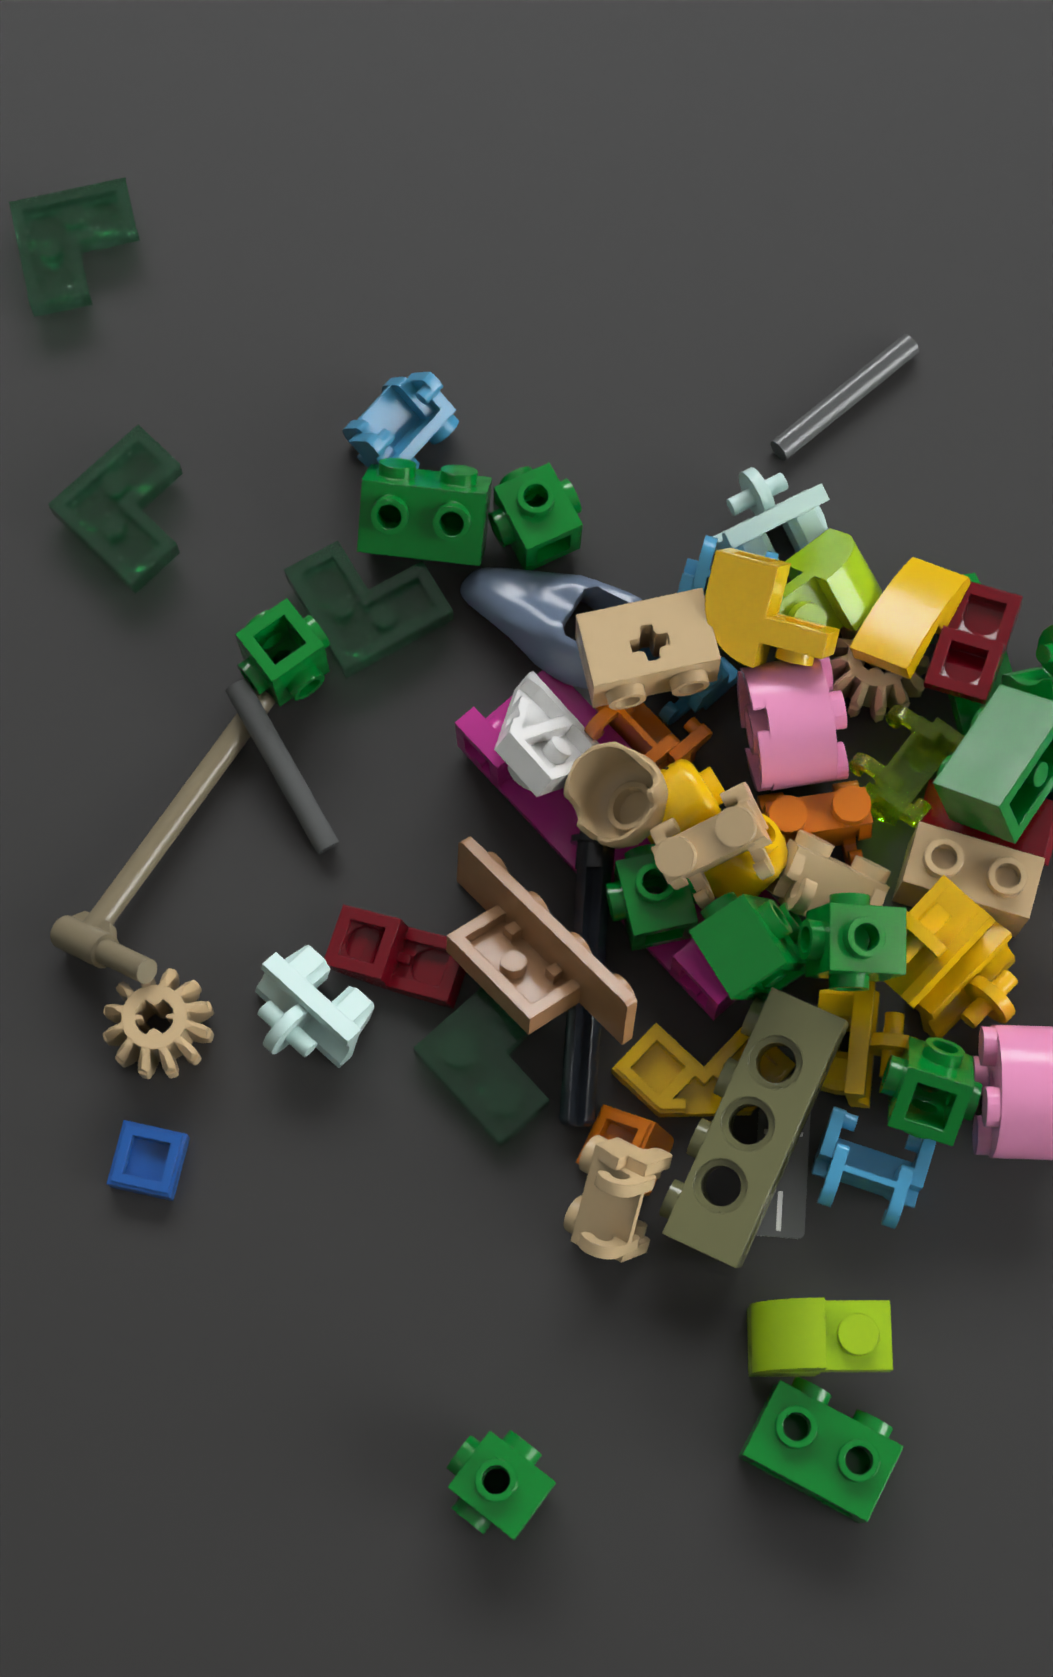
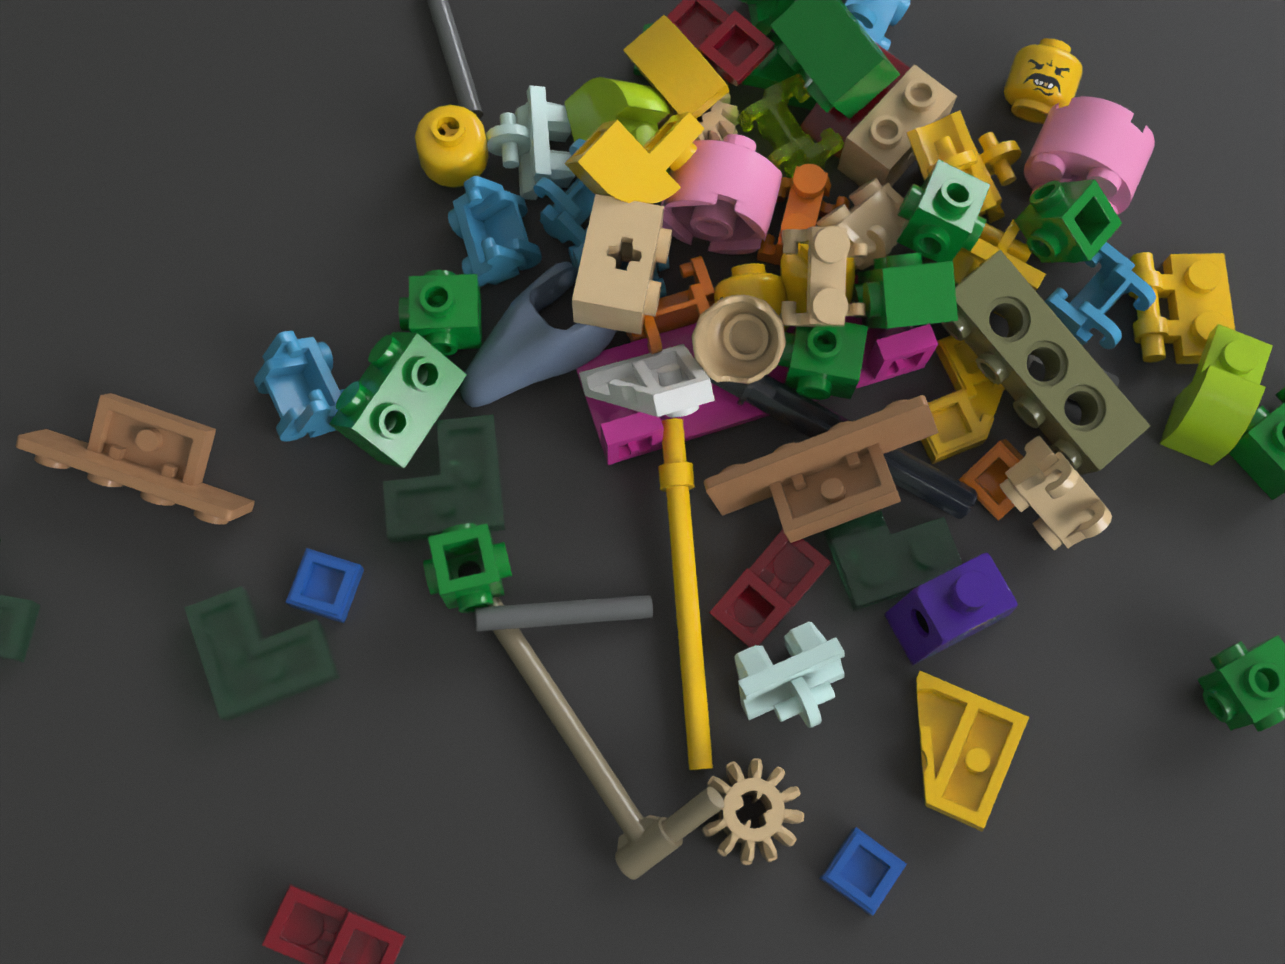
camera: 70 degrees left, 0 degrees up
(218, 539) = (325, 585): none -> blue tile
(269, 320) = (143, 451): none -> medium nougat bracket
(309, 1213) = (964, 749): none -> yellow wing
(452, 1143) = (953, 607): none -> dark purple torso
(465, 813) = (676, 480): none -> yellow bar
(648, 524) = (492, 231): none -> dark azure piece
(722, 441) = (451, 145): none -> yellow head
(932, 1291) = (1196, 303): none -> yellow plate

